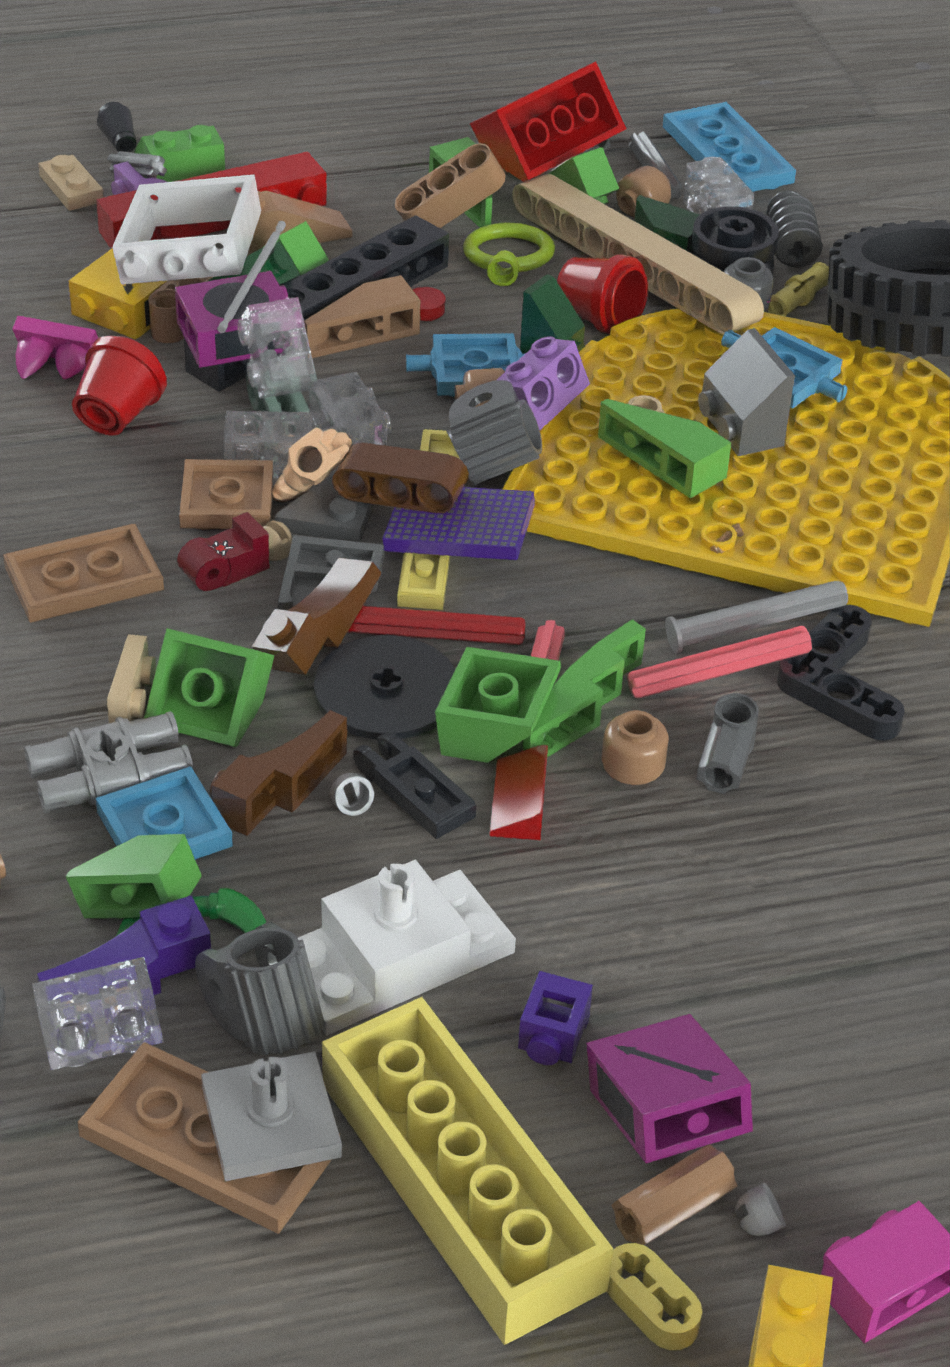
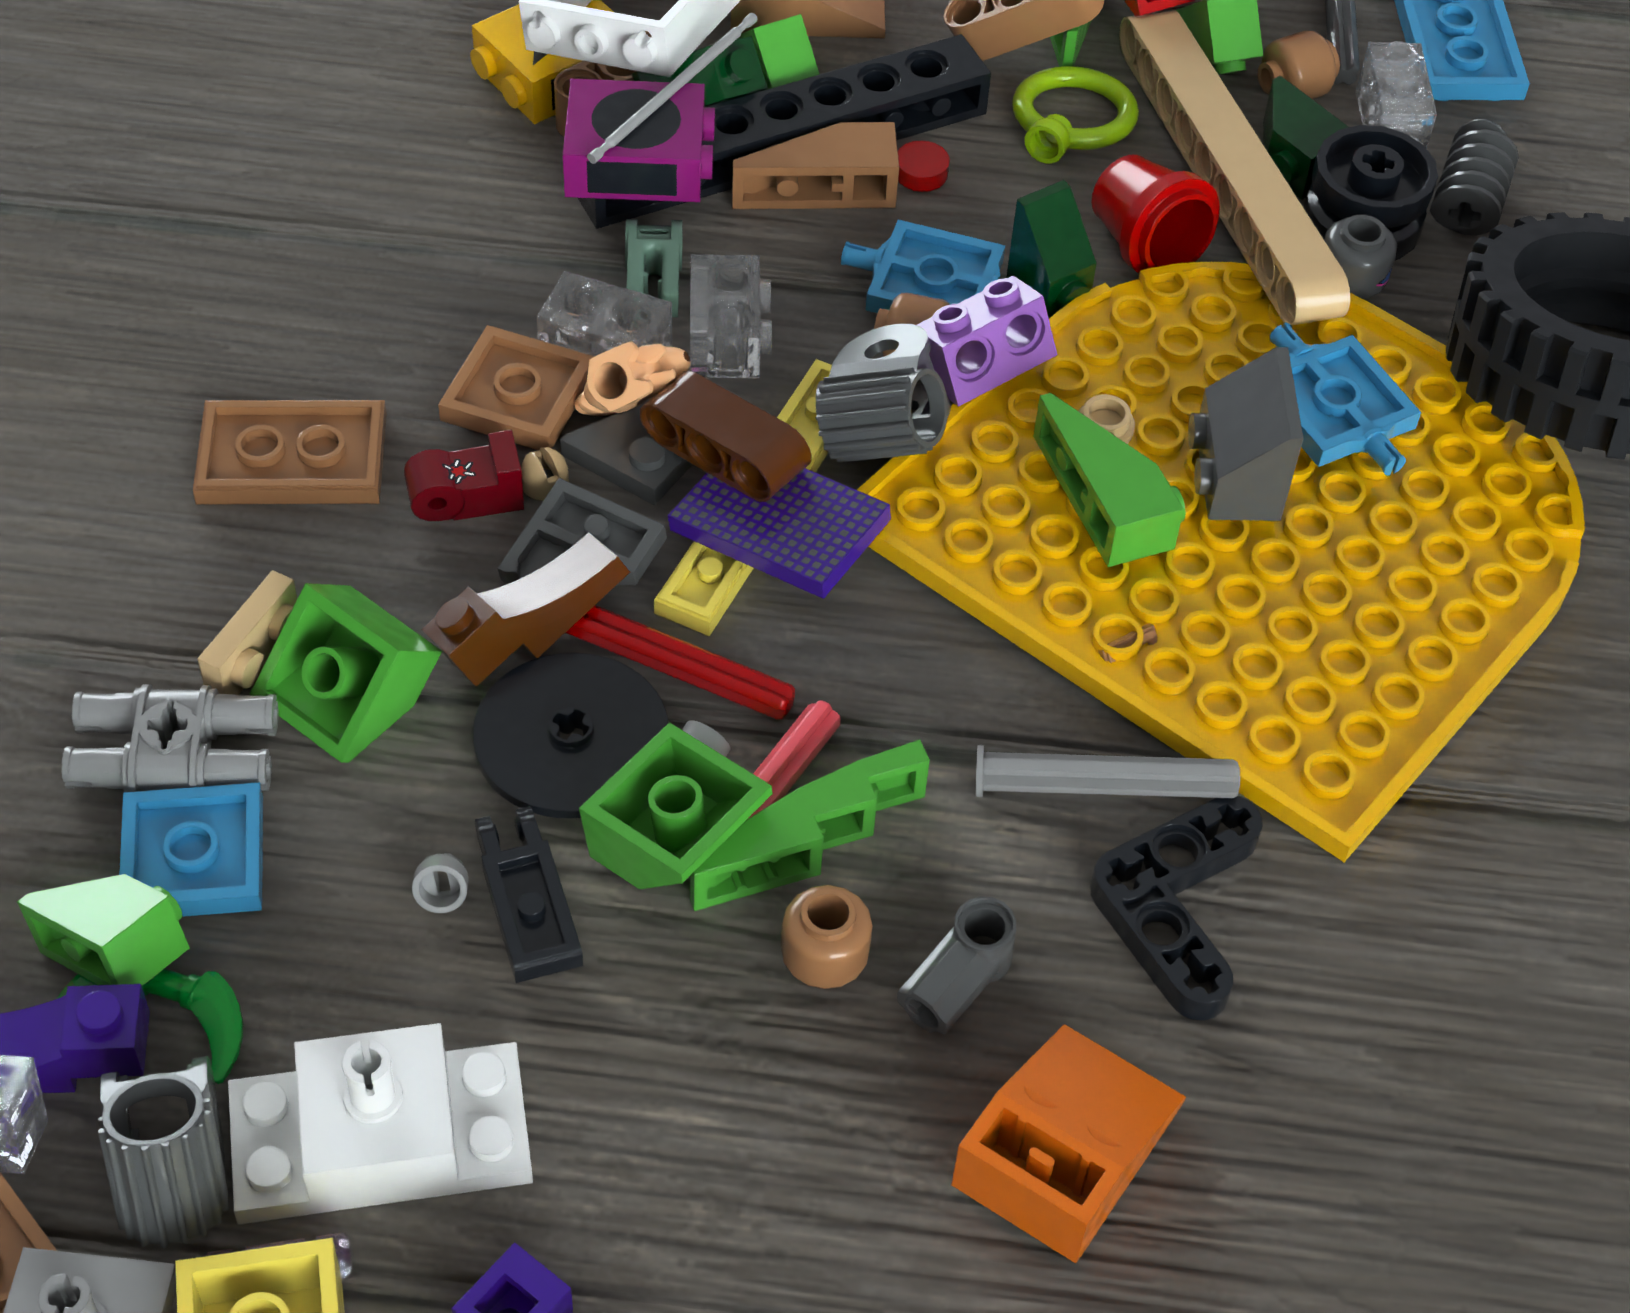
camera: 20 degrees right, 10 degrees up
(47, 339) = (405, 100): dark pink tile -> none
(117, 384) = (453, 194): red piece -> none
(280, 776) = (371, 831): reddish brown slope -> none
(284, 326) = (670, 171): clear brick -> none
(519, 794) = (655, 952): red slope -> none
(719, 662) = (1015, 834): coral axle -> none
(799, 289) = (1434, 277): light yellow pin -> none
(852, 825) = (1064, 1140): none -> orange slope

